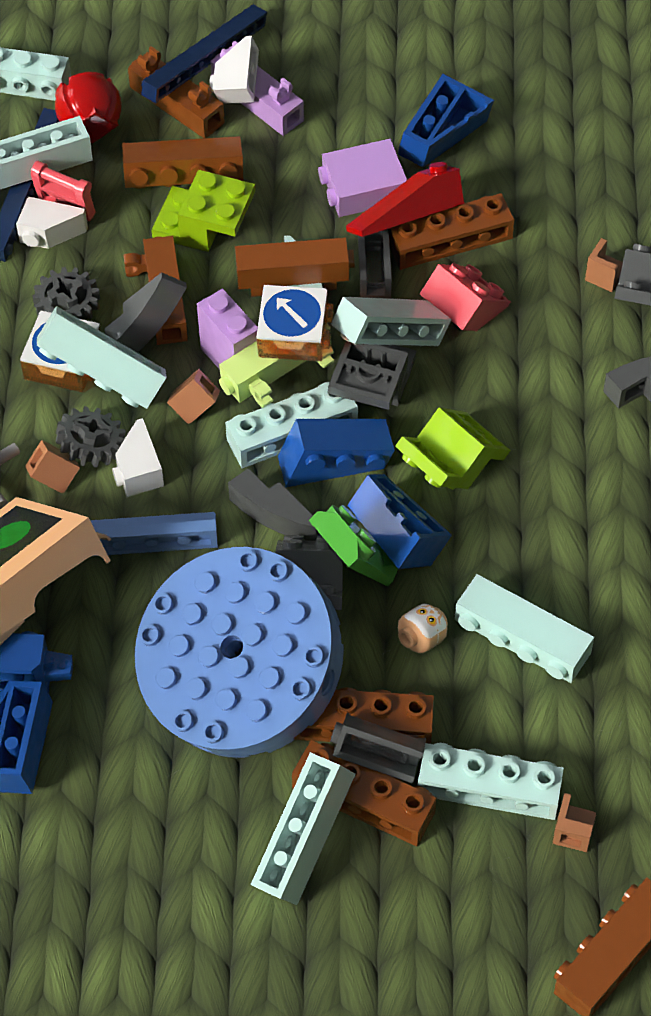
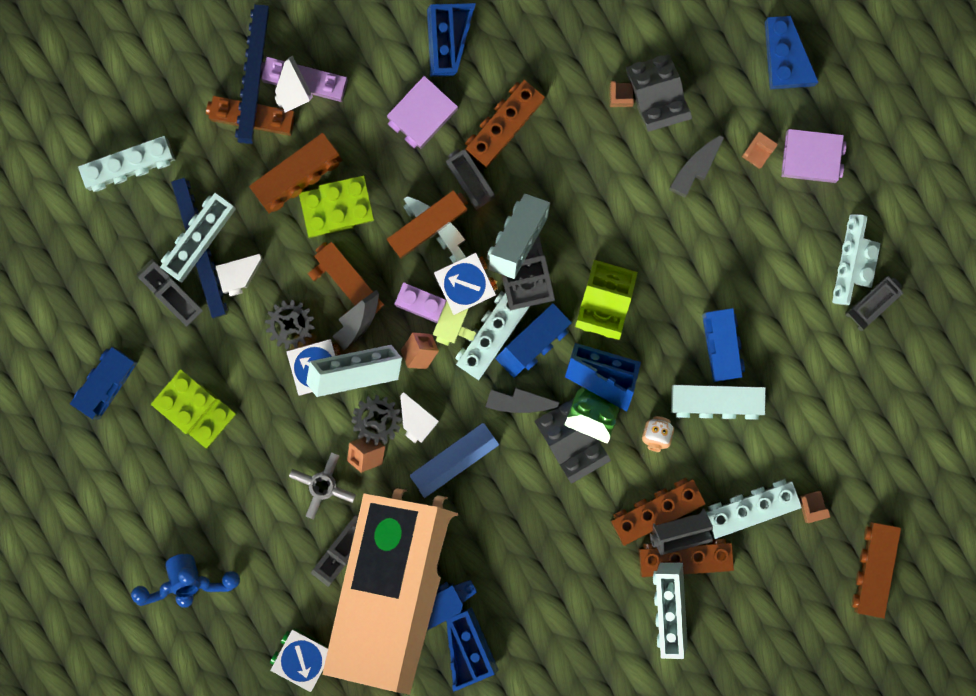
camera: 30 degrees left, 30 degrees up
(62, 189) = (224, 245): coral plate -> none
(93, 100) = (207, 170): red piece -> none
(276, 682) = (550, 551): medium blue brick -> none
(417, 197) = (471, 127): red wedge -> none
(464, 295) = (544, 172): coral slope -> none
(571, 564) = (723, 344): none -> blue wedge

